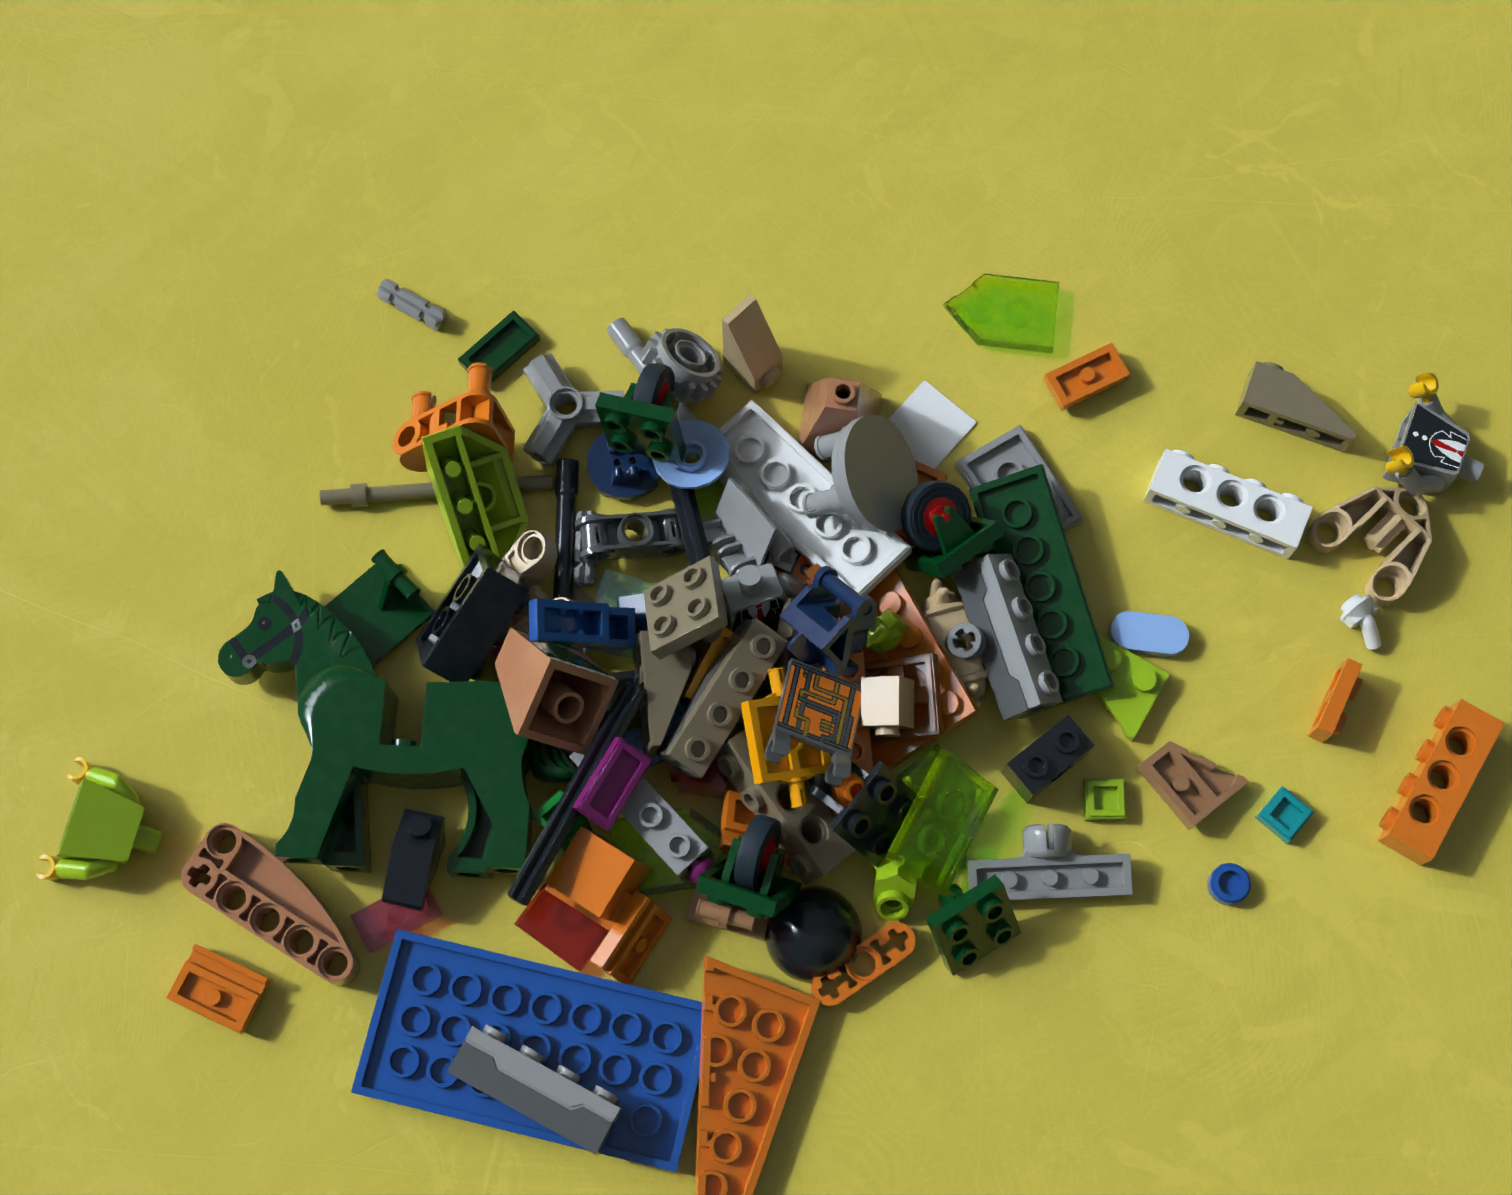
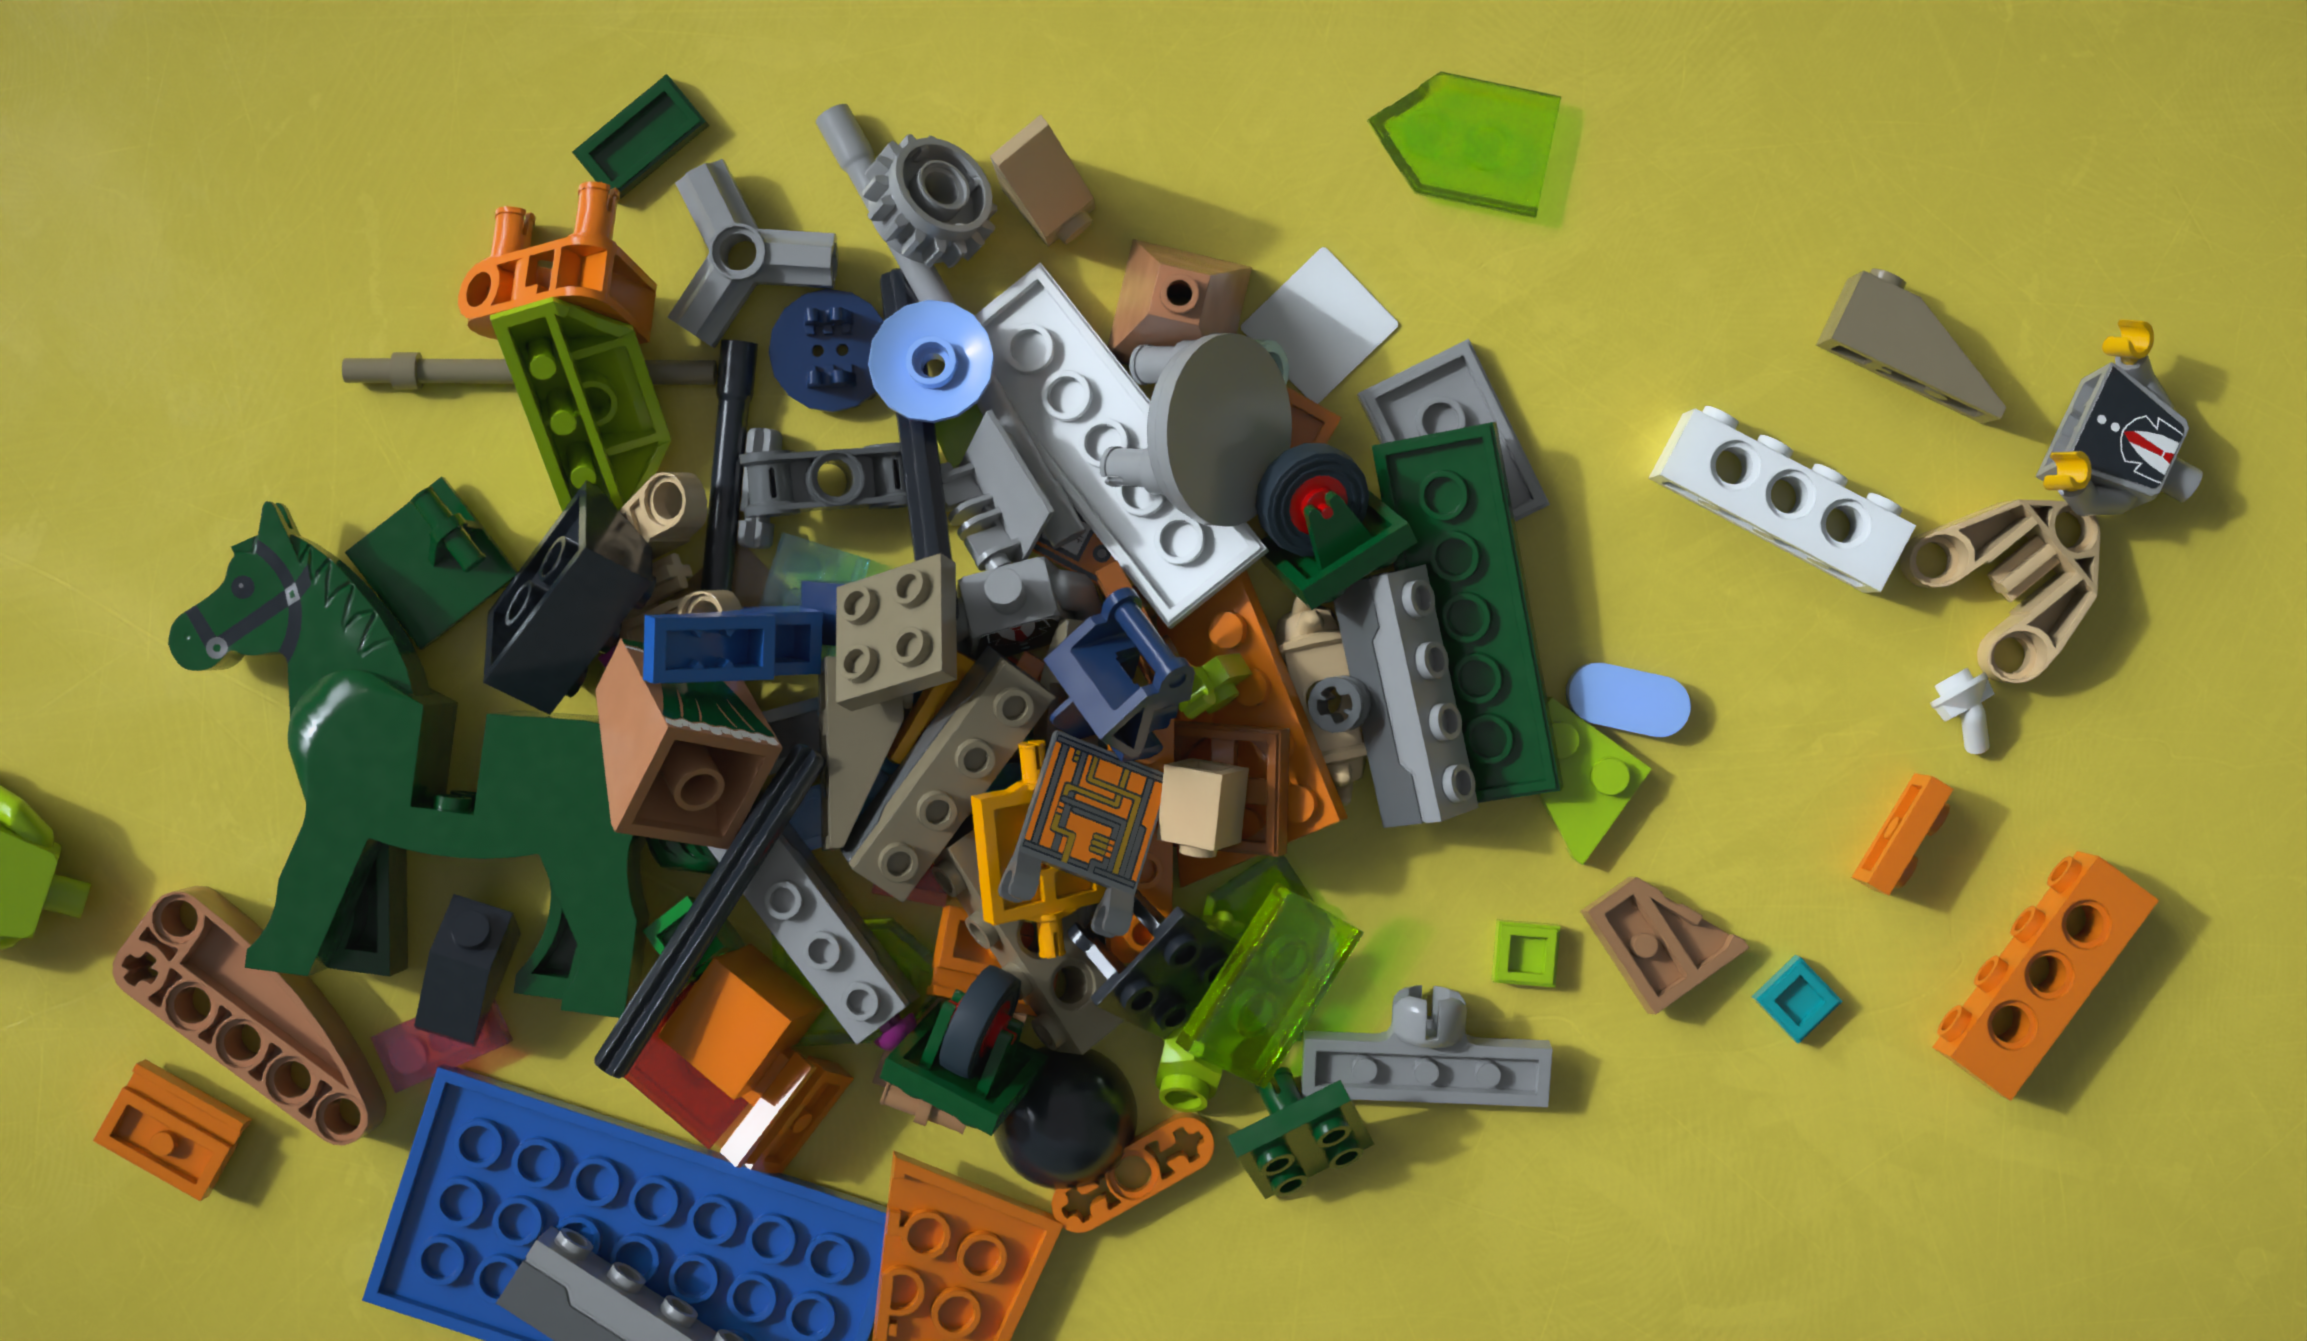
camera: 10 degrees right, 15 degrees up
(411, 304) = (502, 48): light grey axle -> none
(612, 783) = (763, 904): magenta tile -> none
(645, 417) = (858, 300): dark green plate -> none
(1047, 758) = (1445, 890): black brick -> none
(1086, 376) = (1585, 266): orange plate -> none
(1229, 884) = (1697, 1097): blue tile -> none

